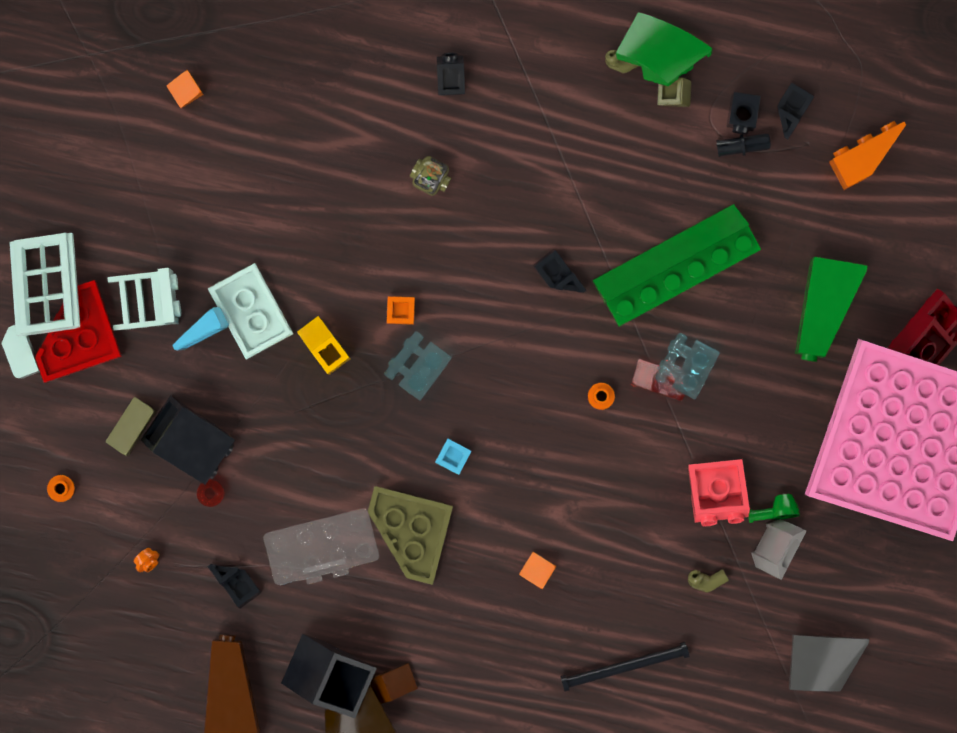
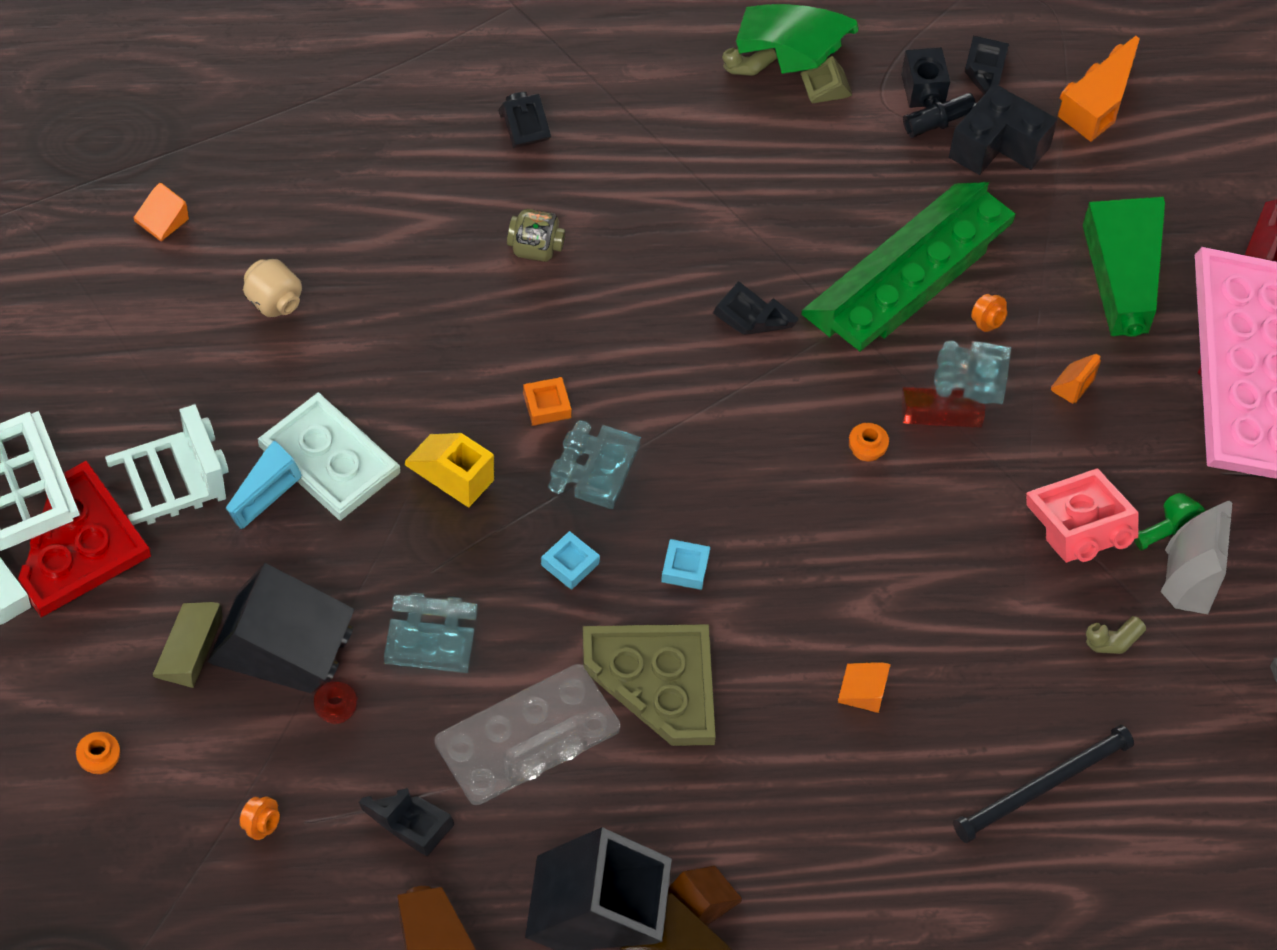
camera: 20 degrees left, 30 degrees down
(243, 176) = (272, 287): none -> tan head
(279, 467) = (430, 644): none -> clear light blue plate
(381, 433) = (570, 560): none -> medium azure plate
(716, 320) = (989, 312): none -> orange plate
(755, 384) = (1076, 378): none -> orange slope
(779, 167) = (1002, 125): none -> black brick

